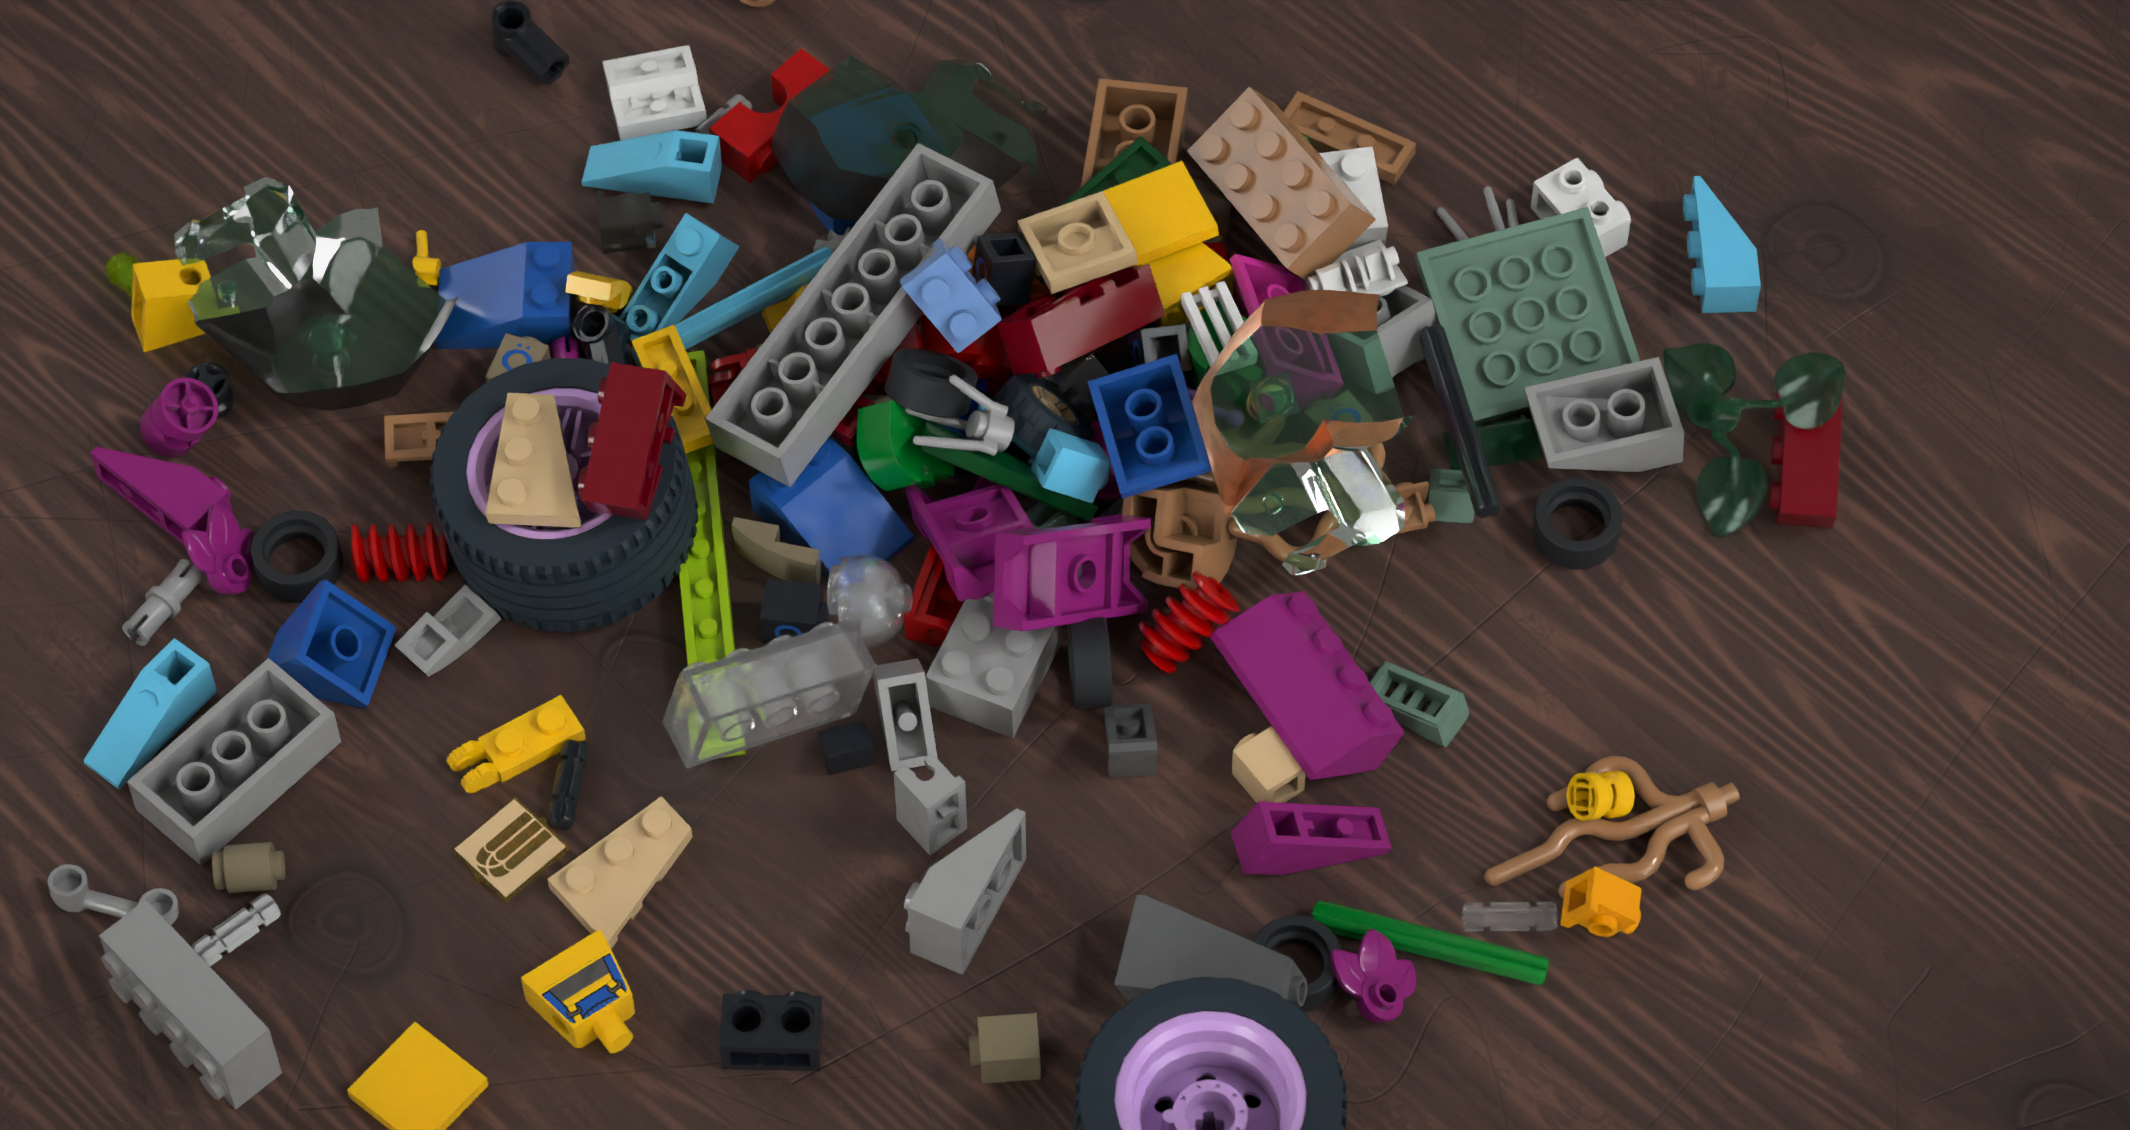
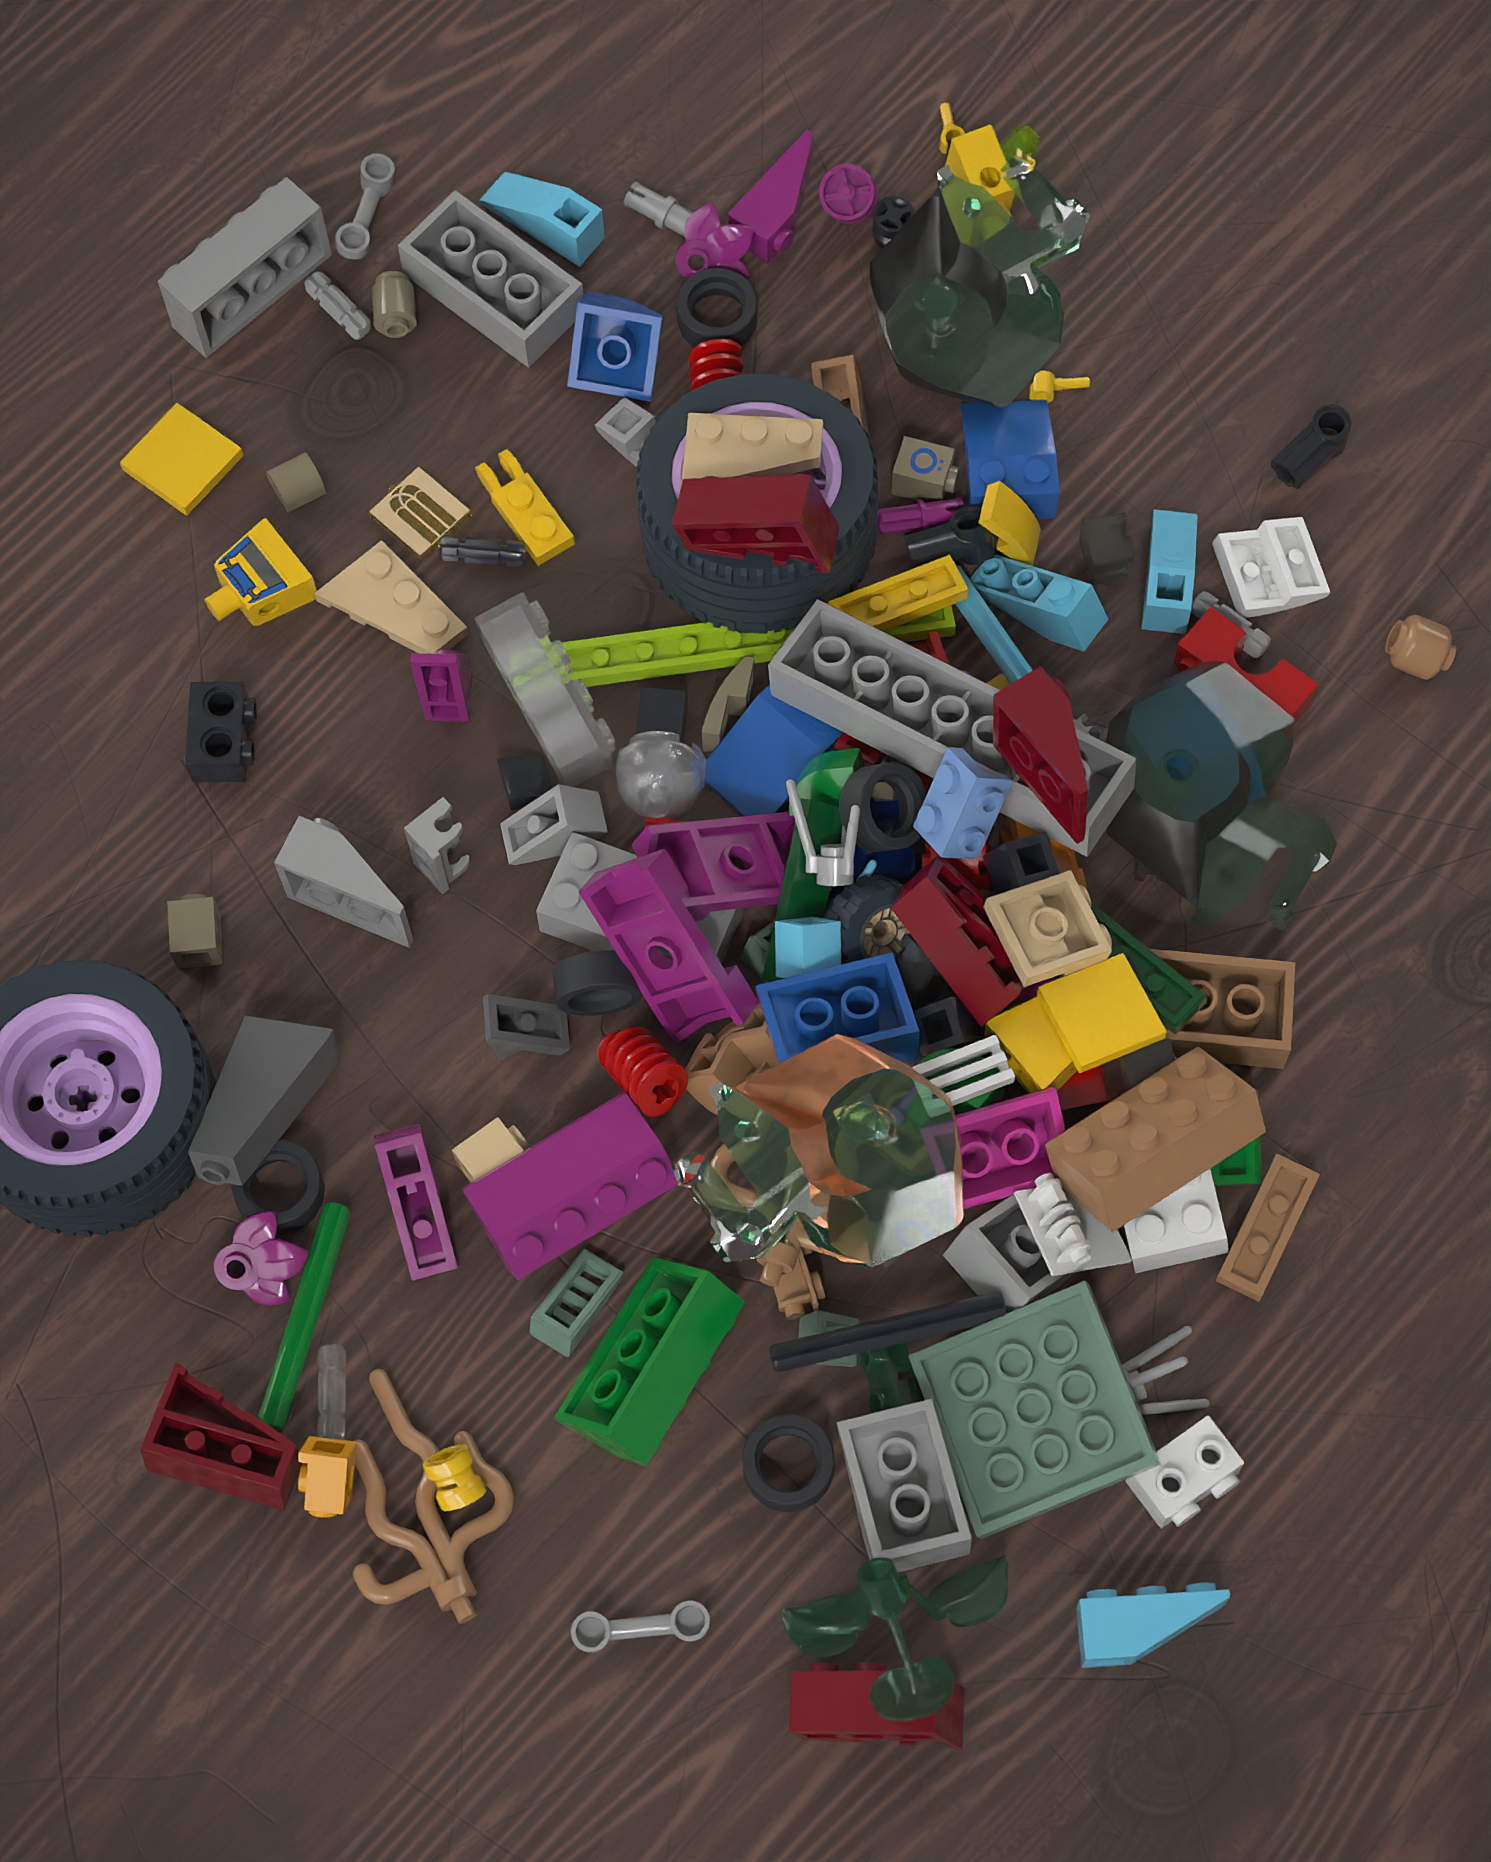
camera: 90 degrees right, 10 degrees up
(105, 344) = (949, 130): none -> yellow hand
(460, 967) = (296, 482): none -> dark tan brick
(735, 798) = (443, 684): none -> magenta slope
(927, 188) = (1041, 745): none -> dark red slope
(1476, 635) = (650, 1359): none -> green slope
(1571, 1004) = (217, 1445): none -> dark red wedge
(1728, 614) = (593, 1631): none -> light grey bar

